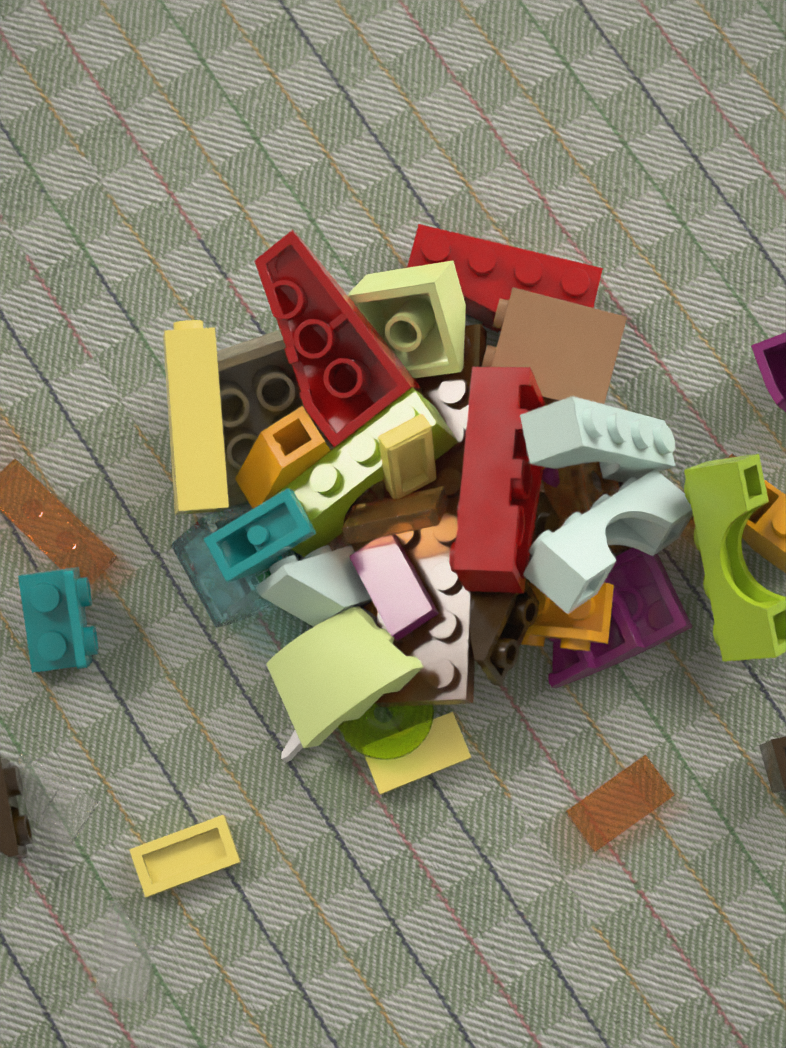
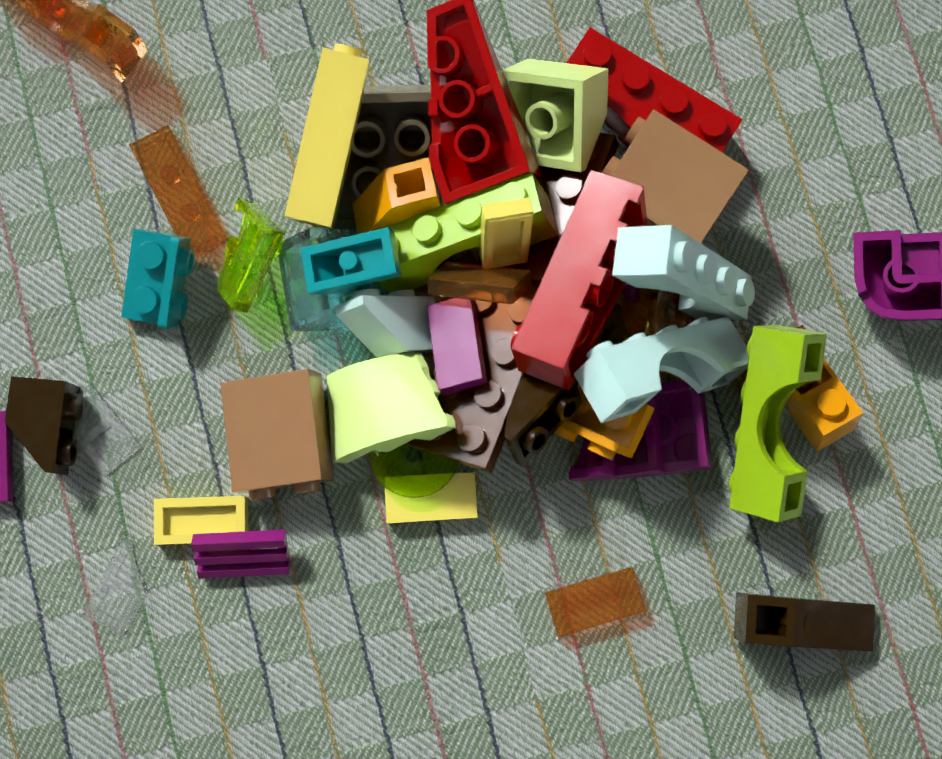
camera: 20 degrees right, 5 degrees up
(145, 566) = (248, 256): none -> clear neon green wing
(237, 738) = (277, 433): none -> medium nougat brick
(243, 881) = (242, 560): none -> magenta tile

